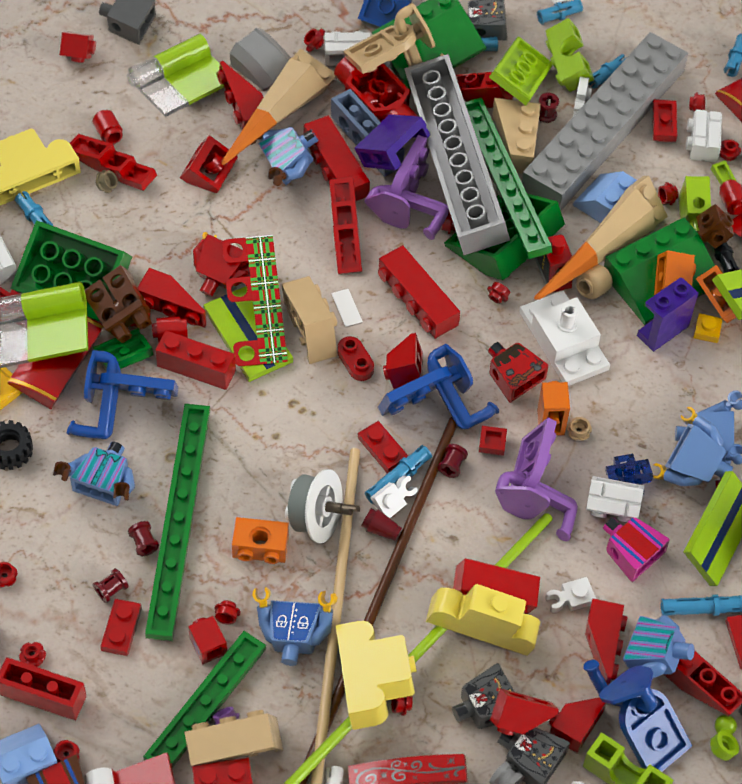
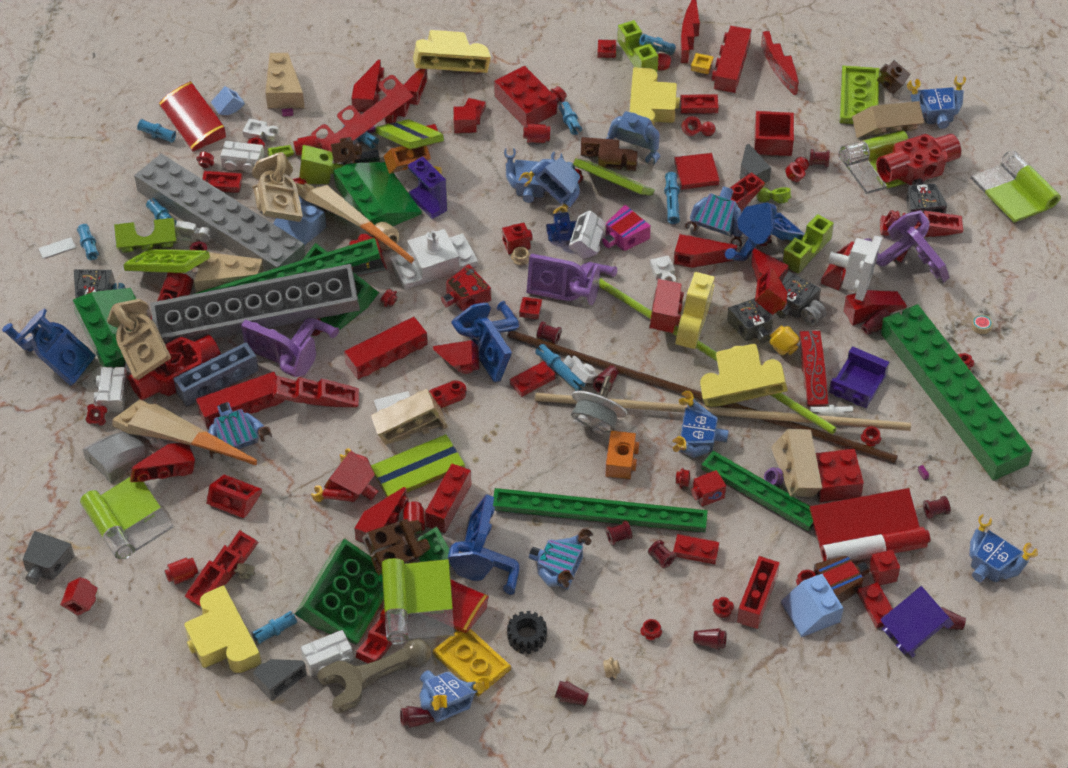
camera: 85 degrees left, 5 degrees down
(264, 291) = (390, 444): piece -> none
(381, 144) = (244, 344): dark purple panel -> none
(450, 736) = (784, 340): none -> yellow head
(554, 404) = (509, 263): orange brick -> none
(606, 421) = (516, 236): none -> red brick
(618, 156) = (276, 192): none -> tan plate
(673, 266) = (393, 181): orange brick -> none

